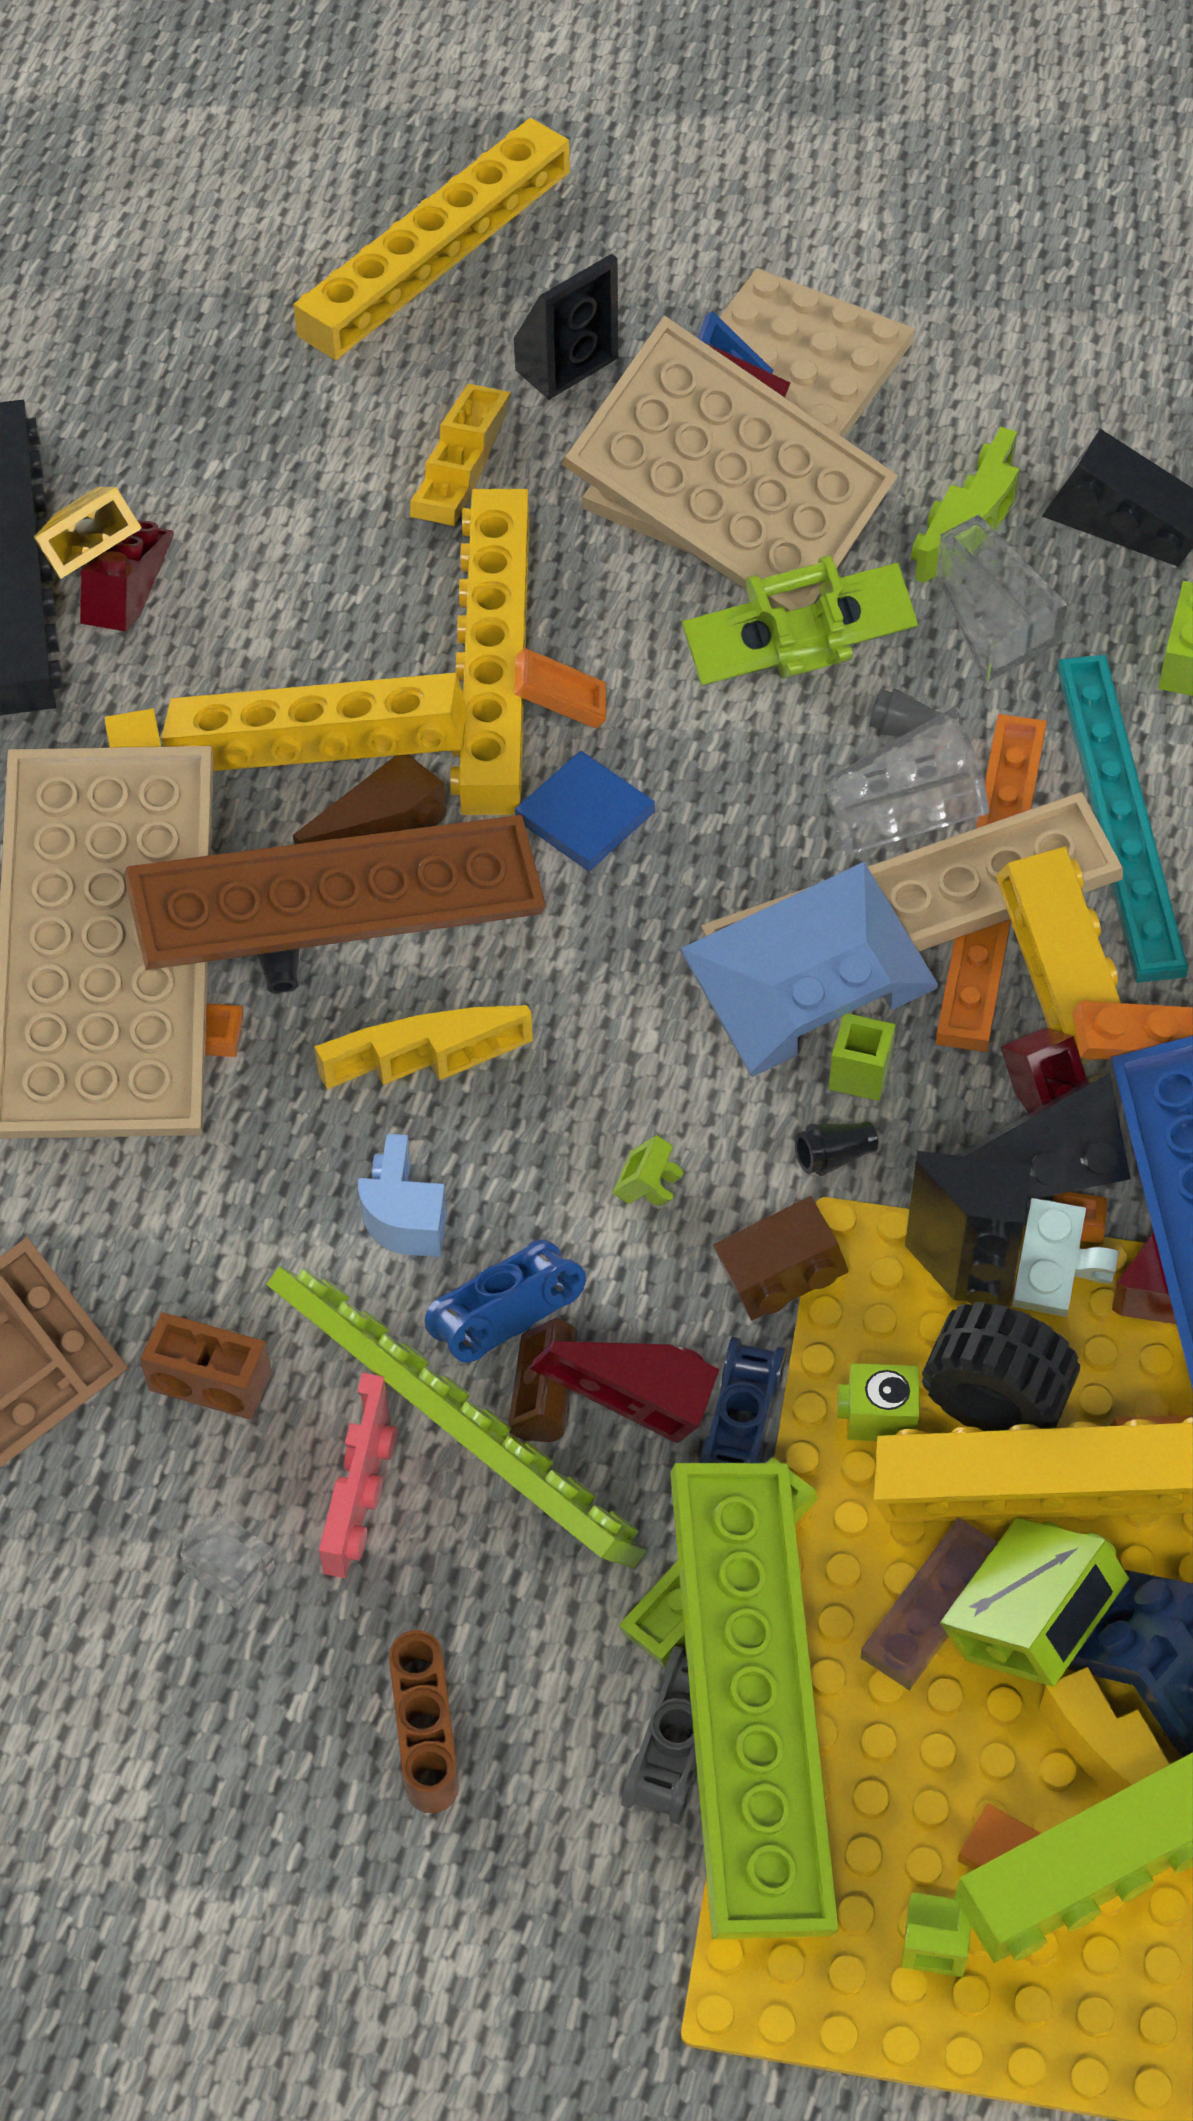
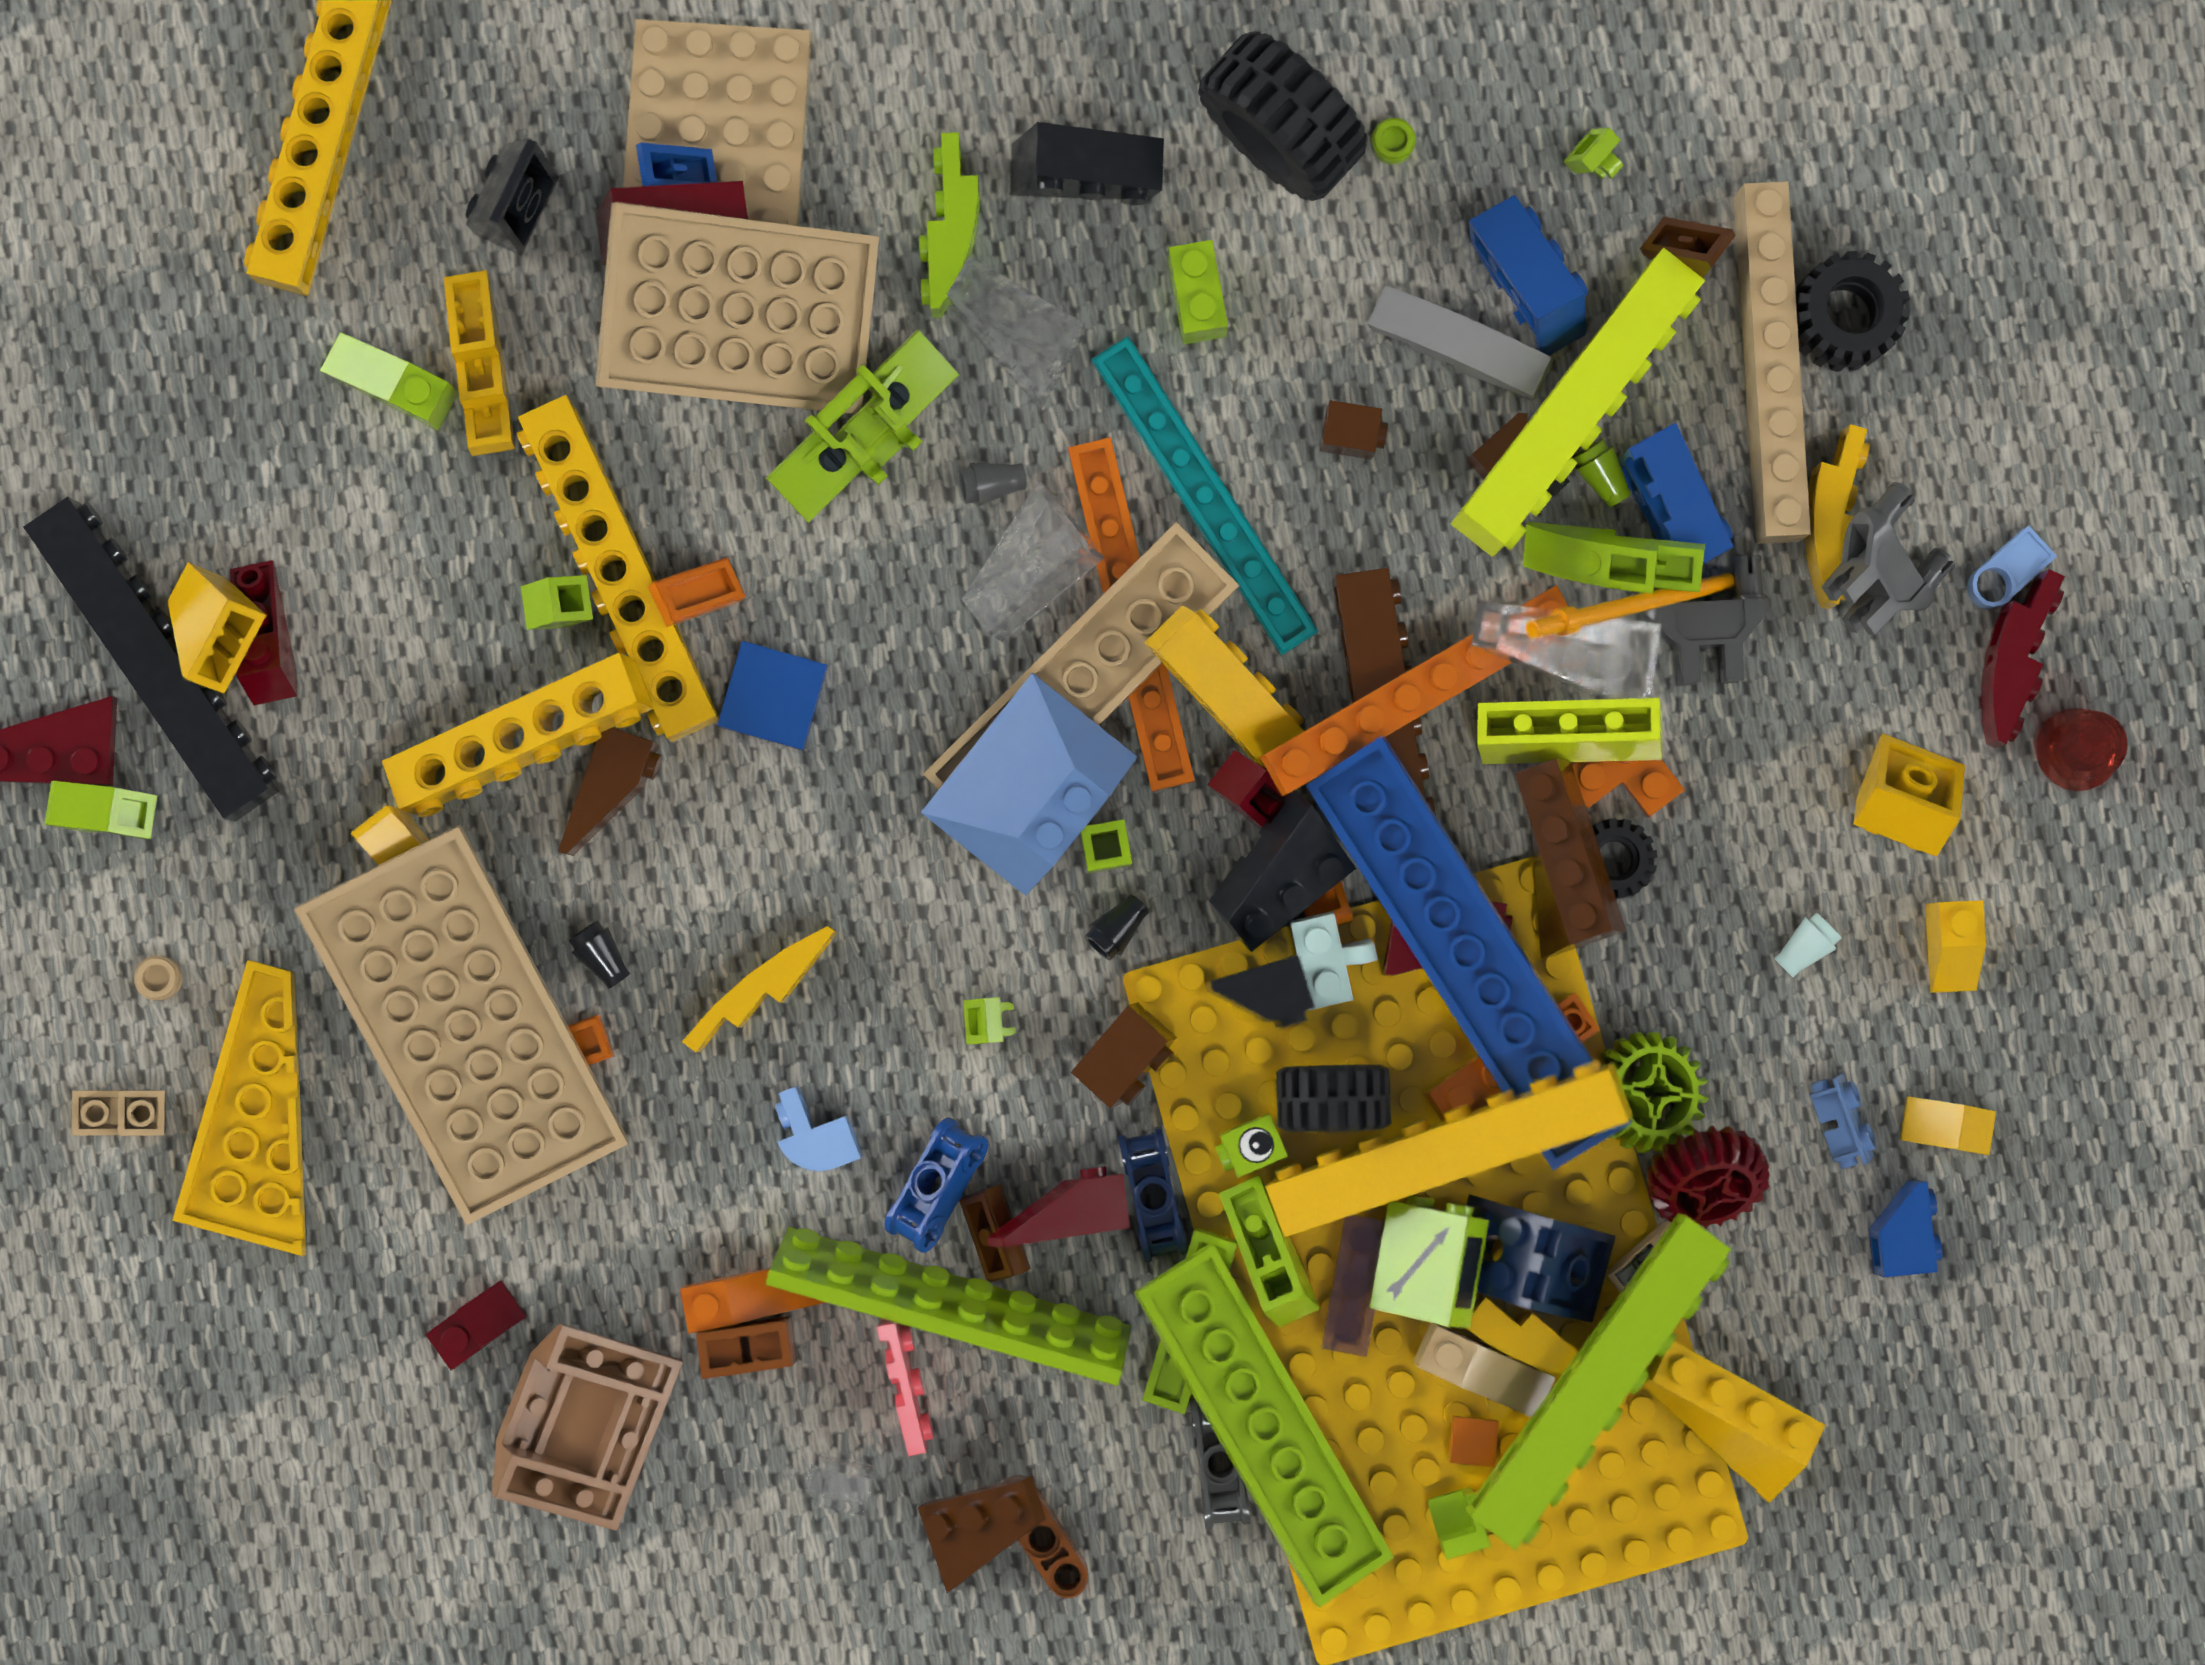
camera: 30 degrees left, 30 degrees up
(291, 1338) = (736, 1300): none -> orange slope
(333, 891) = (624, 898): dark orange plate -> none
(356, 1659) = (979, 1525): none -> reddish brown wing
(376, 439) = (390, 380): none -> lime slope
(419, 642) = (556, 602): none -> lime brick
(846, 1525) = (1269, 1257): none -> lime slope
(1035, 1747) = (1482, 1369): none -> tan slope

